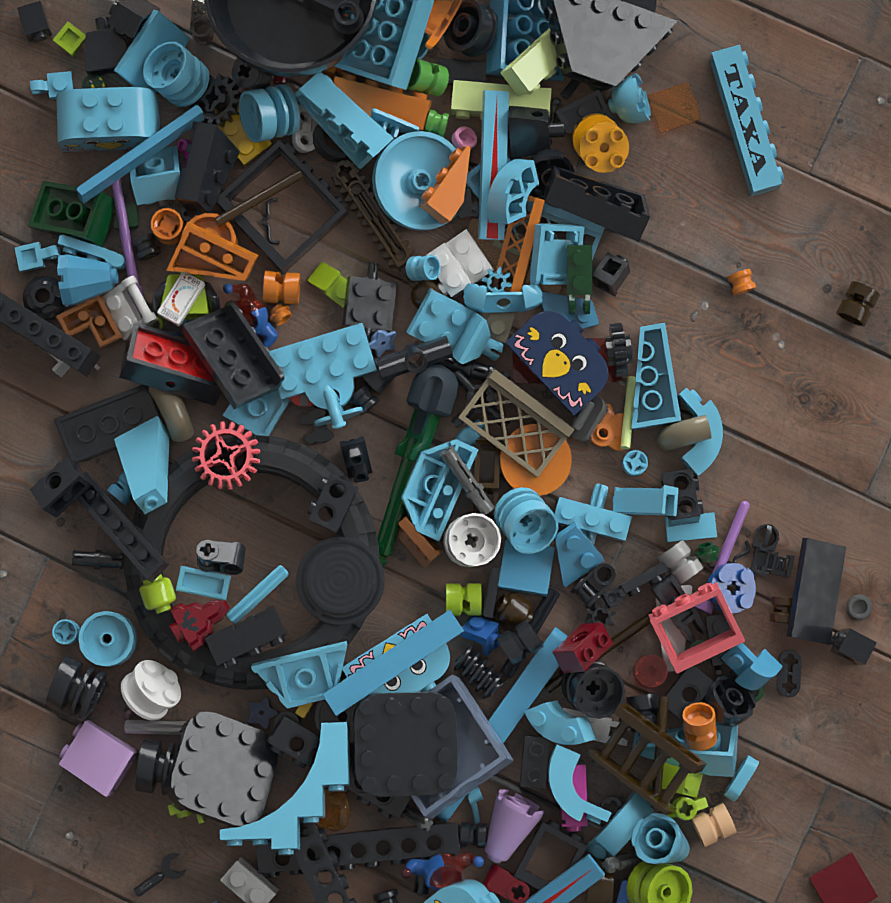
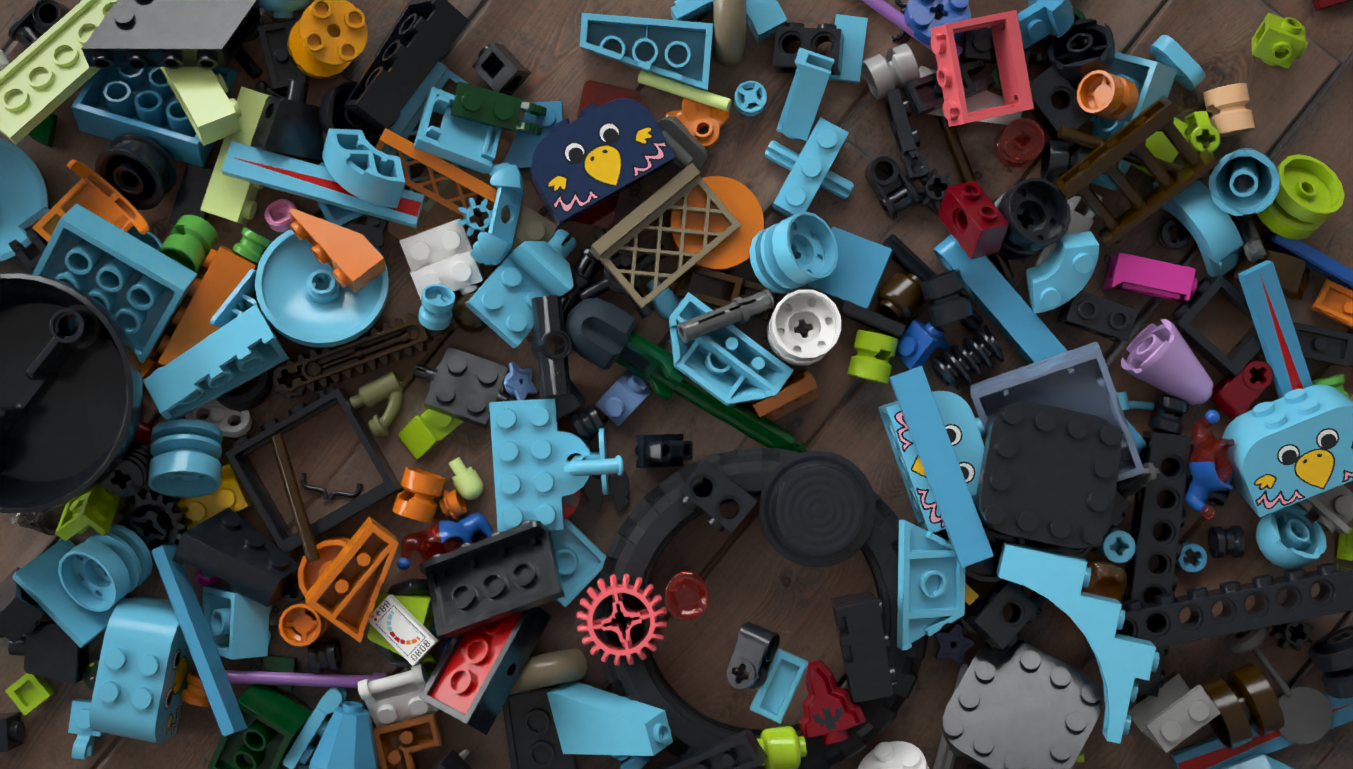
camera: 75 degrees left, 5 degrees up
(99, 160) = (195, 692): none -> orange wheel
(216, 54) = (91, 509): none -> lime bracket
(255, 498) = (686, 595): none -> clear red wheel
(257, 594) = (810, 619): medium azure axle -> none
(300, 320) = (466, 480): none -> yellowish green cylinder
(355, 244) = (382, 388): none -> olive plant
(361, 877) = (1201, 559): none -> dark azure bush
(367, 813) = (1111, 544): none -> medium azure wheel
(389, 422) = (623, 397): none -> medium blue bracket
(561, 784) = (1127, 286): medium azure arch -> none
(575, 554) = (849, 200): dark azure wing -> none
(618, 350) = (602, 81): black gear -> none
(707, 552) = (885, 35): dark green plate -> none
(775, 850) = (1279, 41): none -> lime brick

